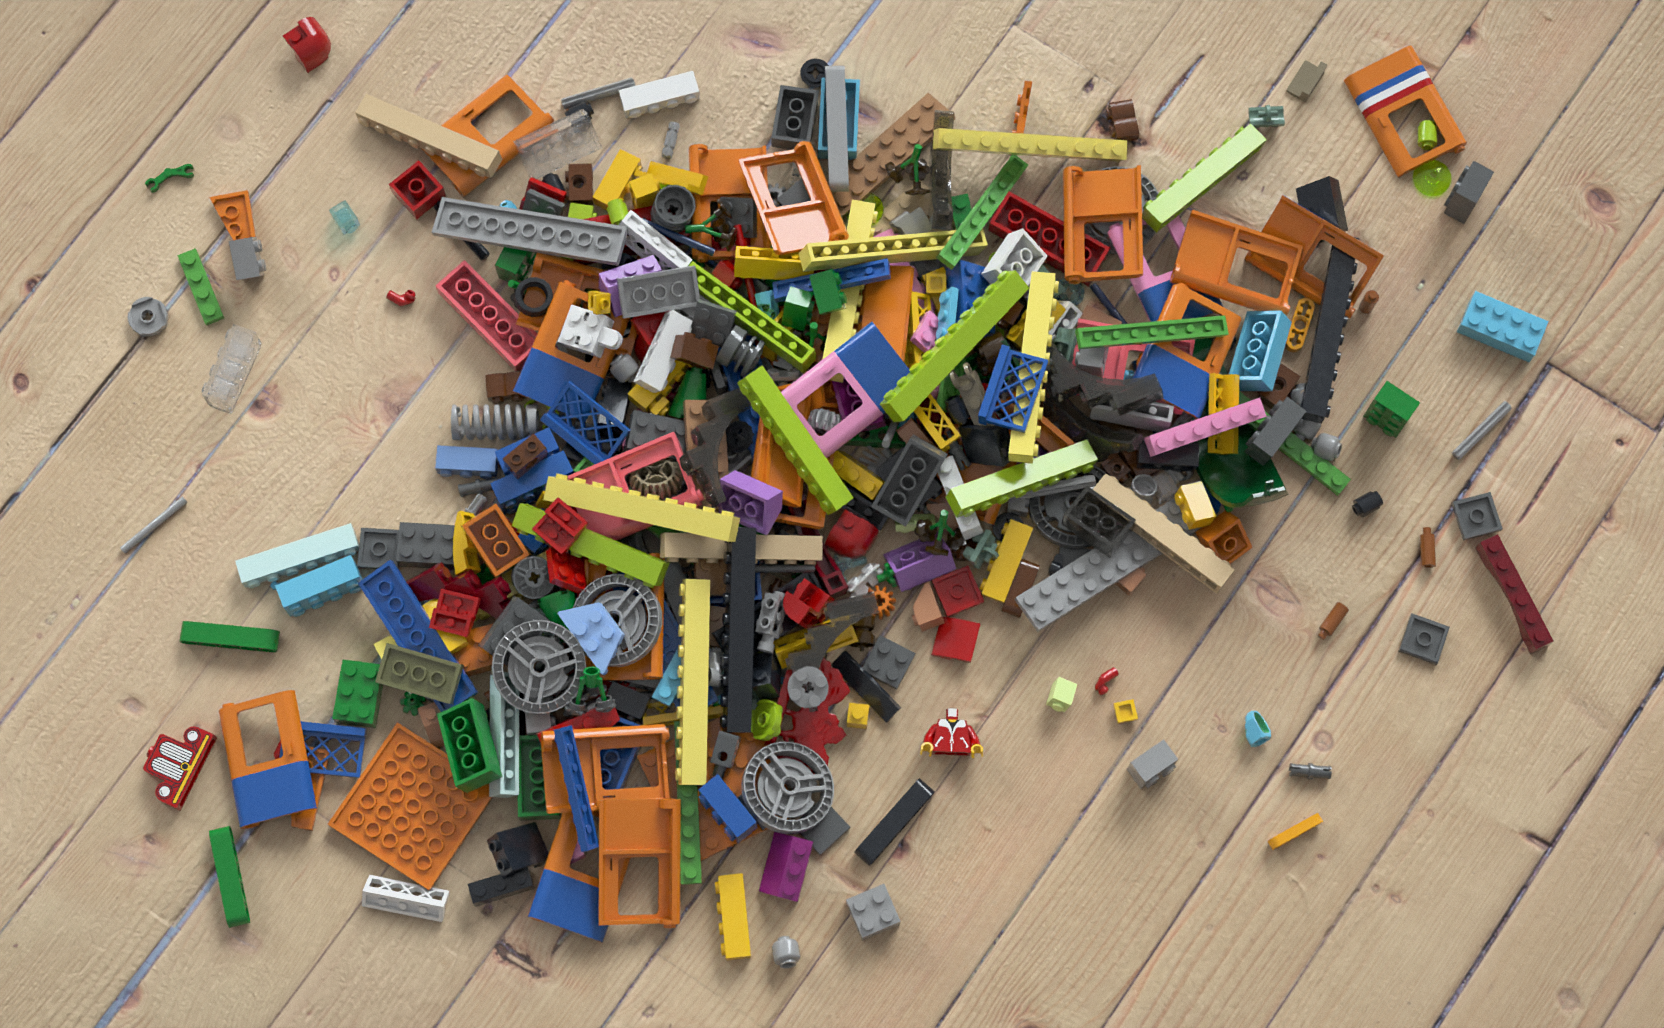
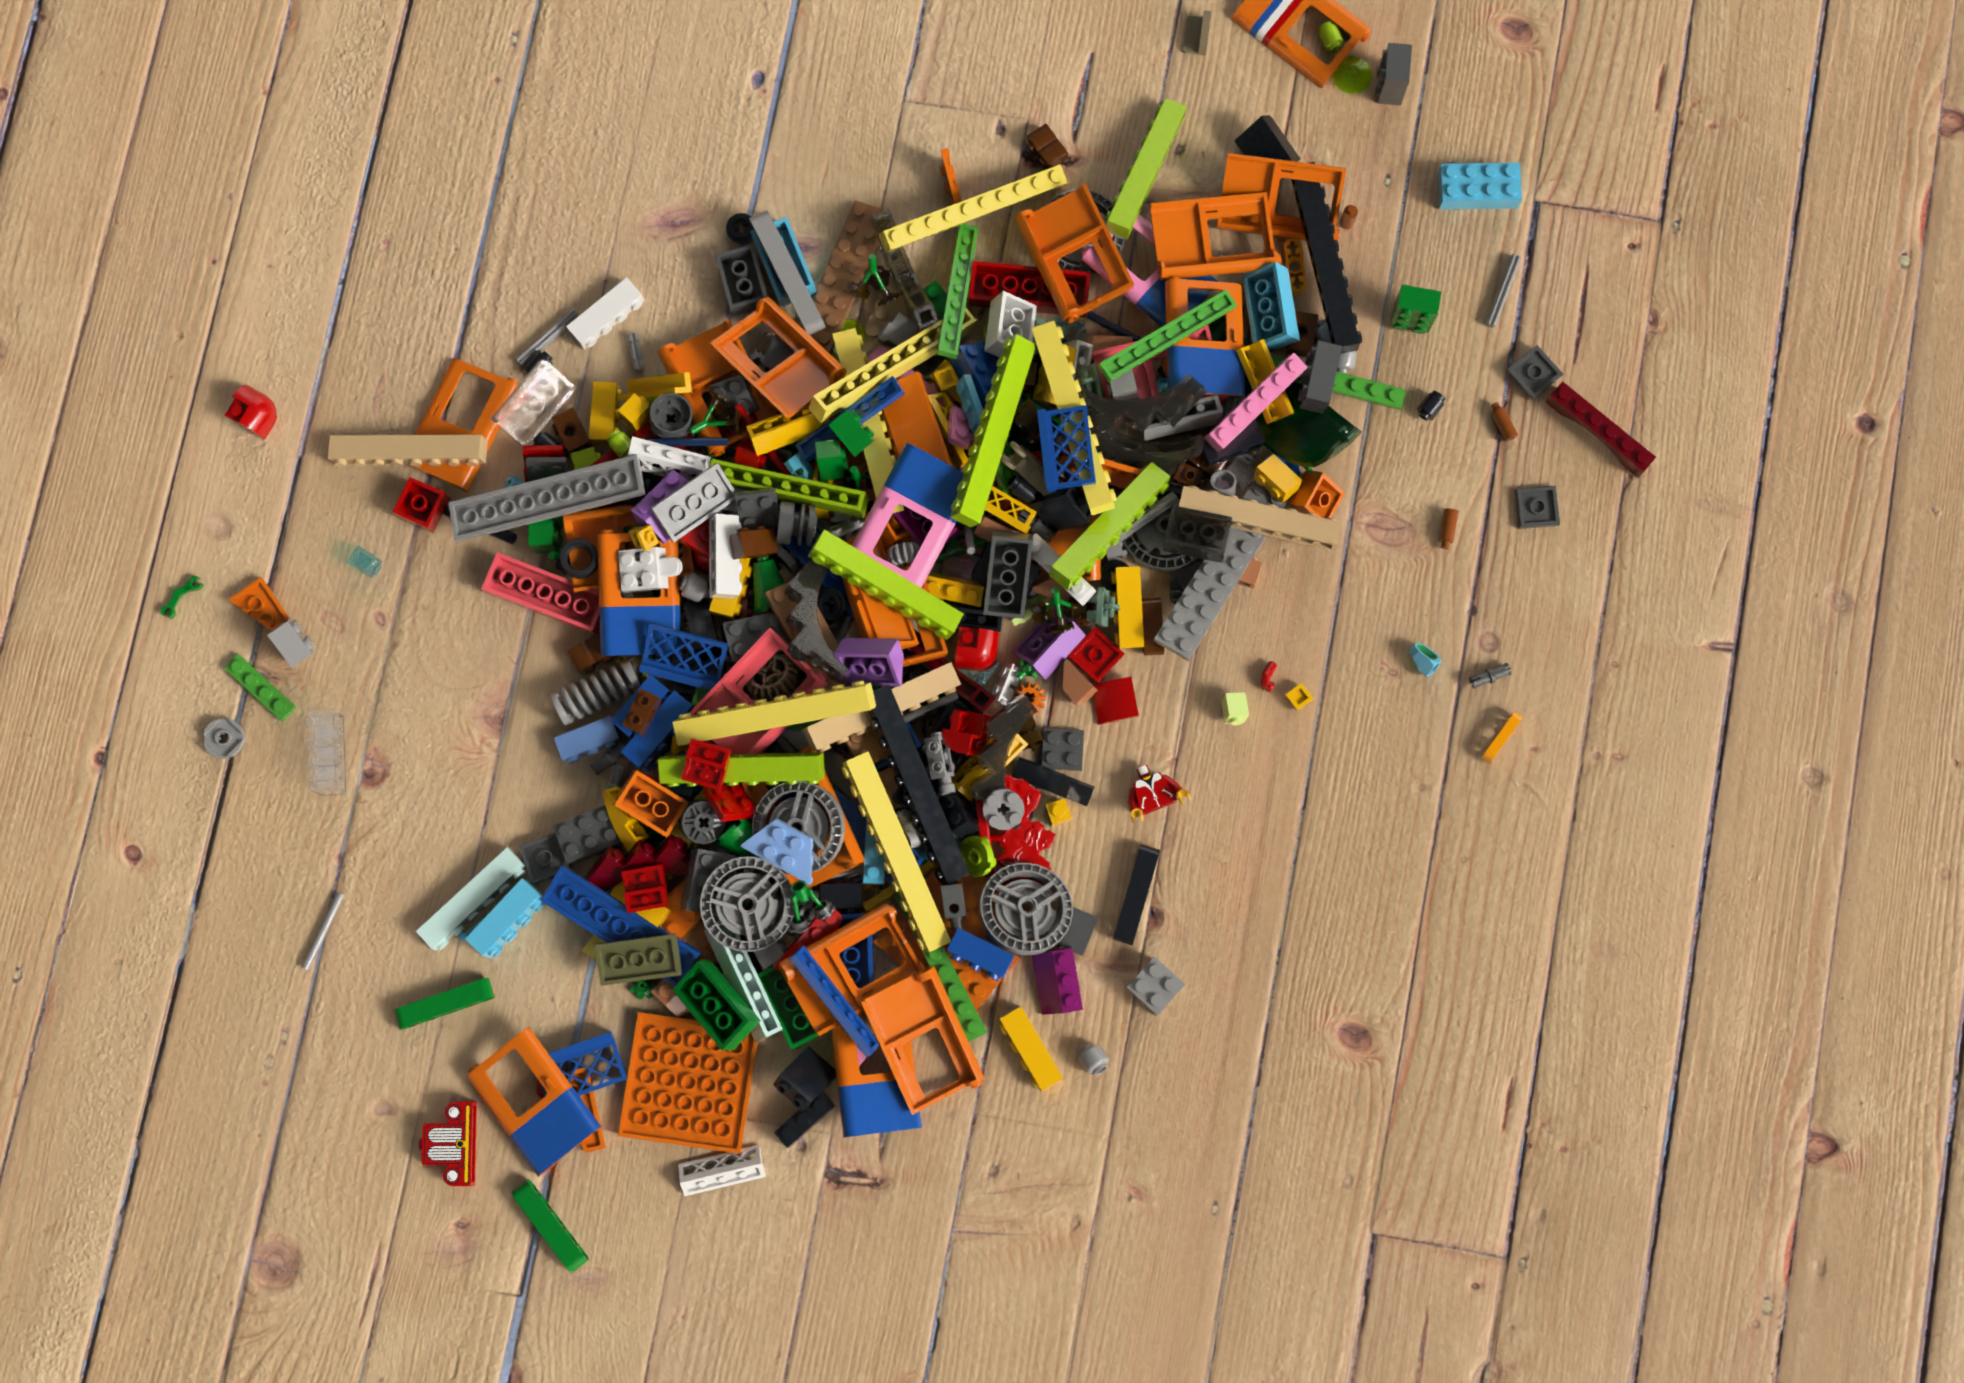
camera: 15 degrees left, 5 degrees up
(358, 694) = (589, 1003): green brick -> none
(401, 300) = (454, 616): red arm -> none
(661, 407) = (746, 609): yellow plate -> none
(1152, 764) = (1347, 734): light grey brick -> none
(1266, 116) = (1177, 84): sand green hips -> none
(1326, 446) = (1370, 369): light grey head -> none

